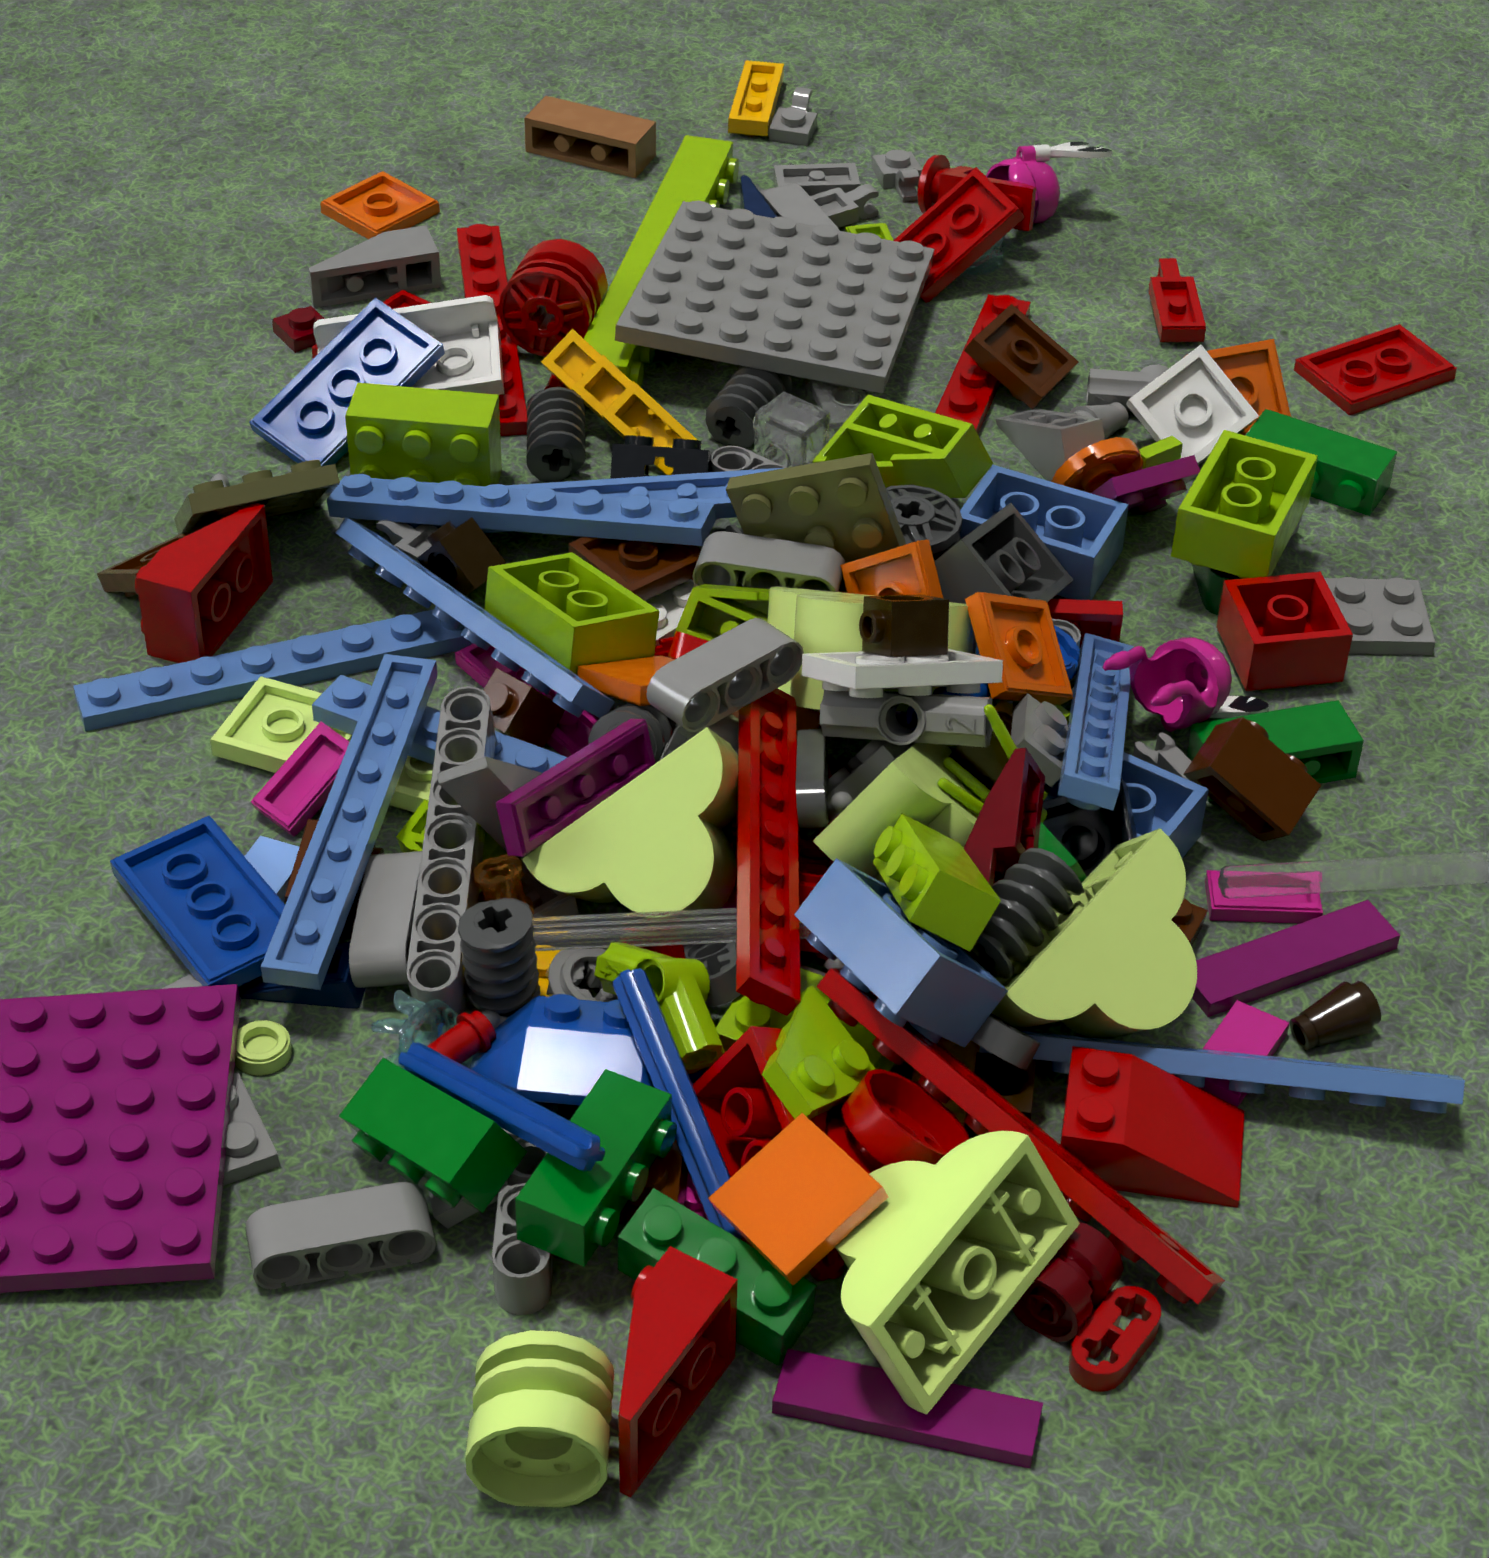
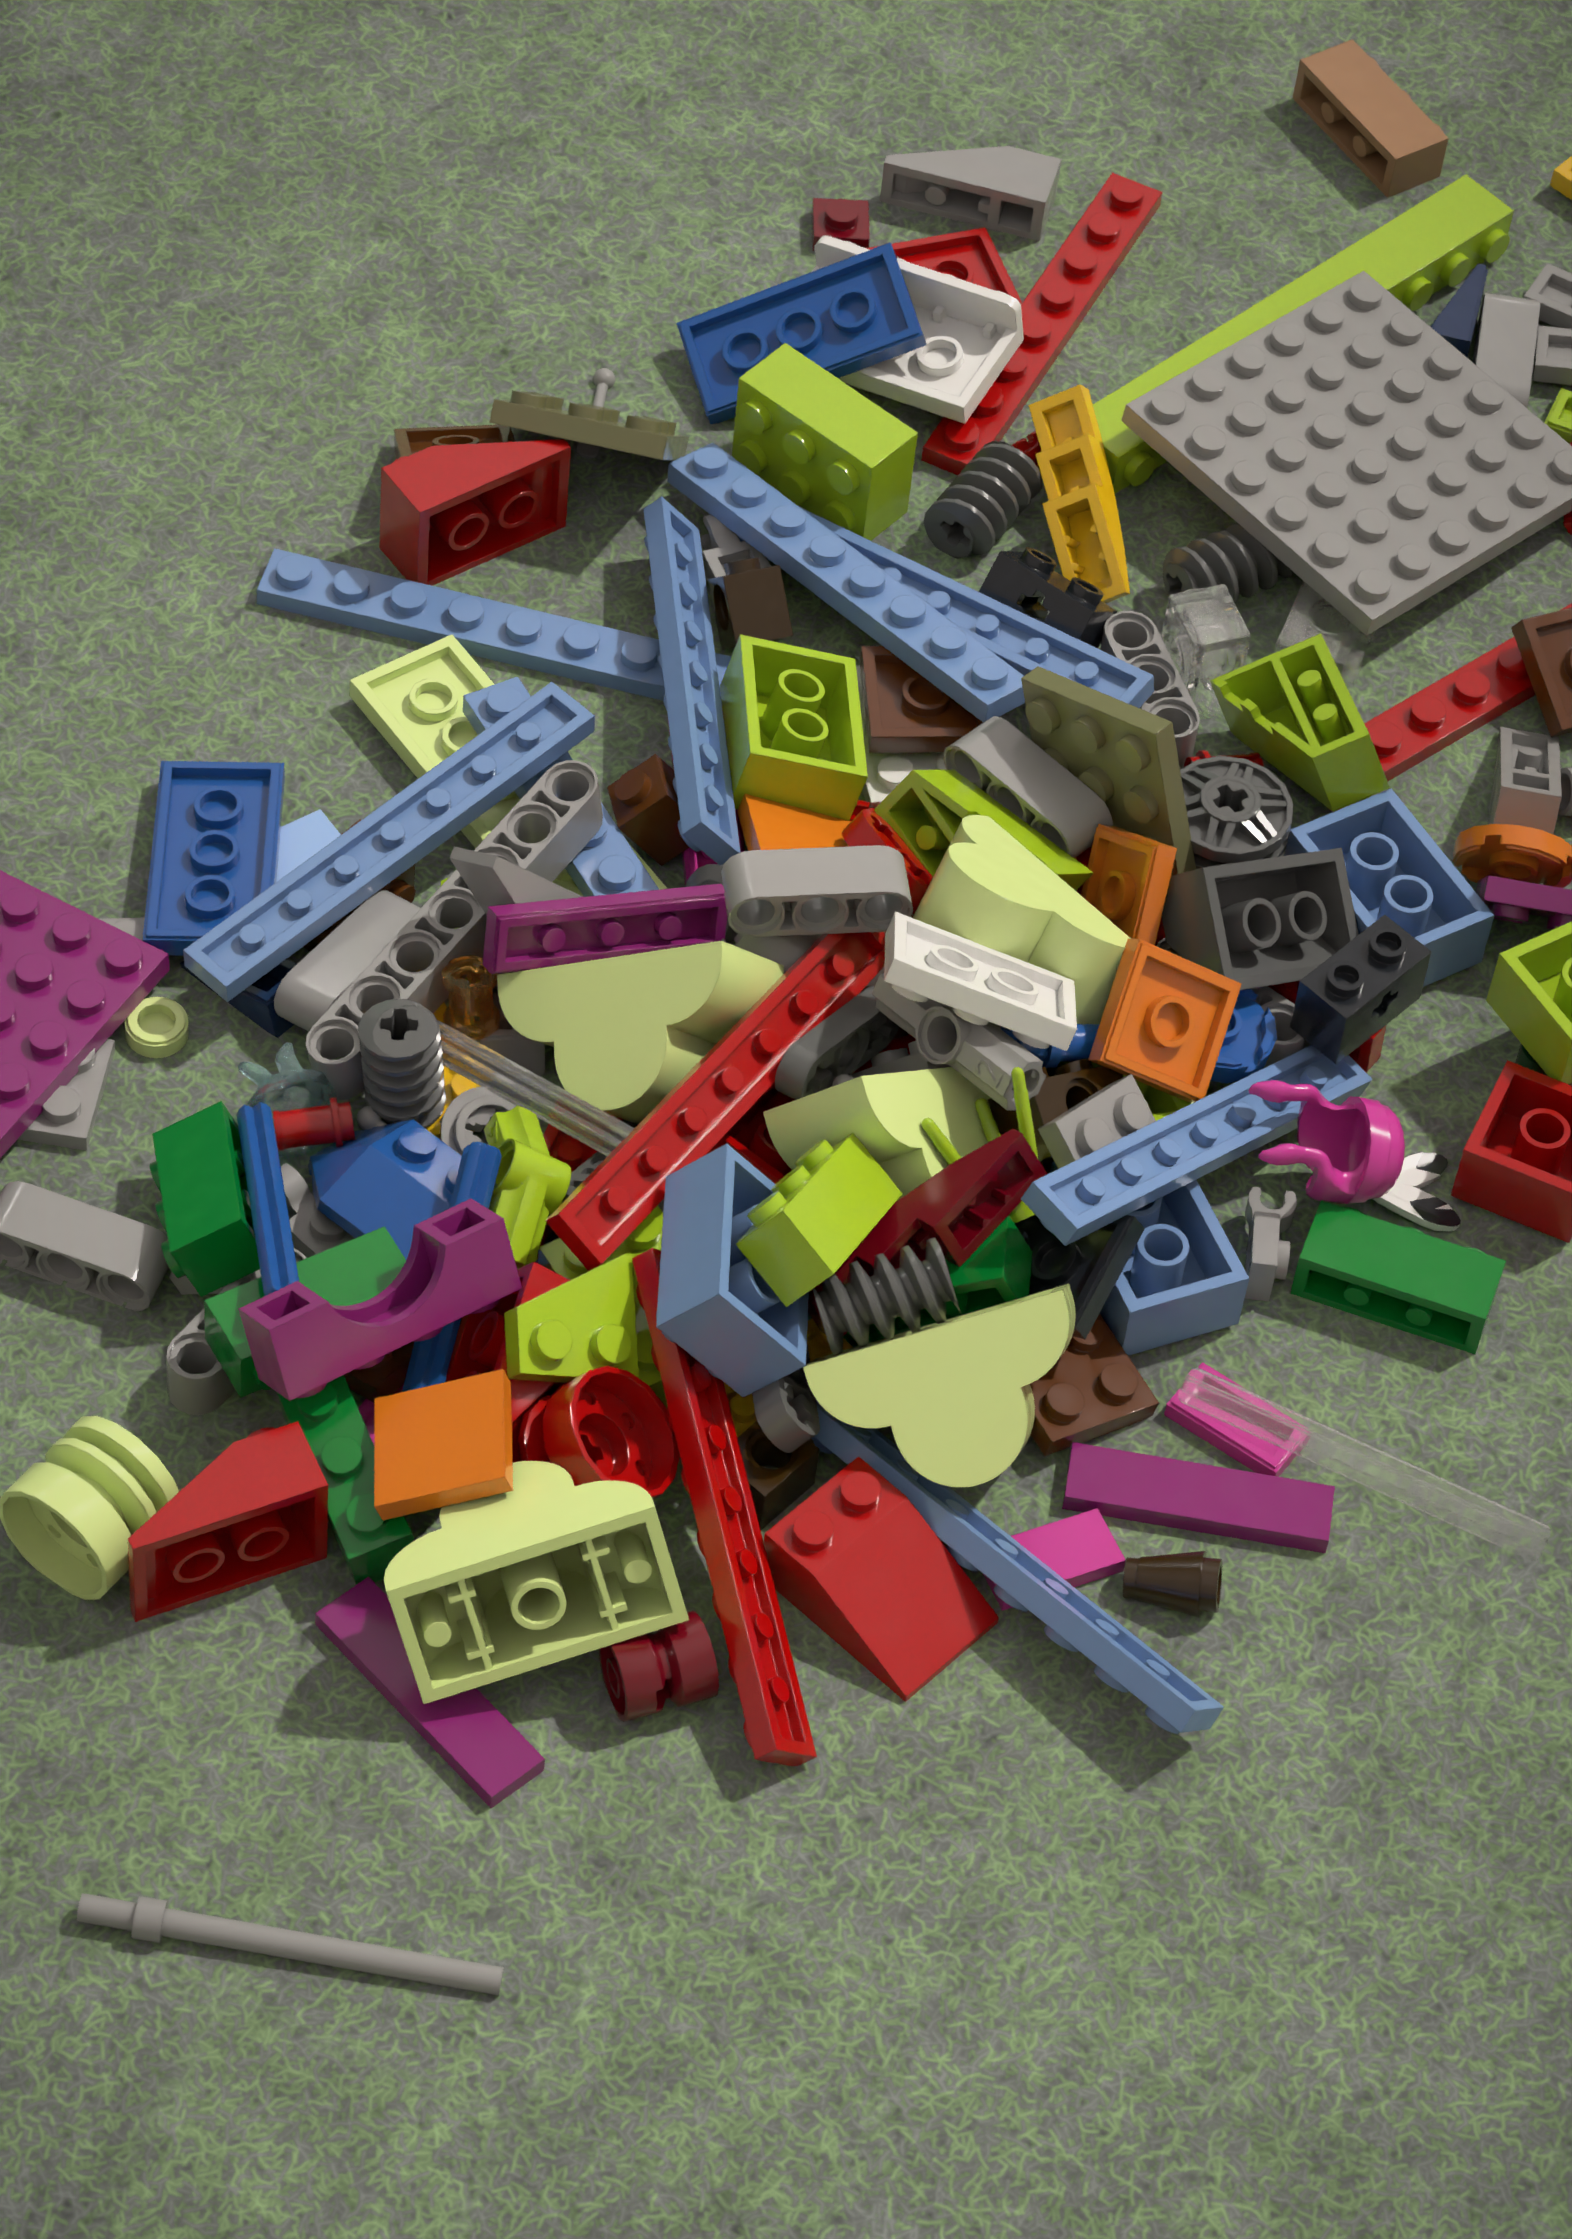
camera: 30 degrees right, 10 degrees up
(303, 780) = (387, 772): dark pink tile -> none
(379, 206) = (1057, 100): orange tile -> none
(551, 294) = (1113, 325): red wheel -> none
(638, 1172) = (453, 1269): none -> magenta arch
(905, 625) = (1015, 936): dark brown brick -> none
(1099, 581) = (1360, 989): none -> black brick
(1126, 1345) = (666, 1745): red beam -> none
(1253, 779) = (1317, 1294): reddish brown brick -> none

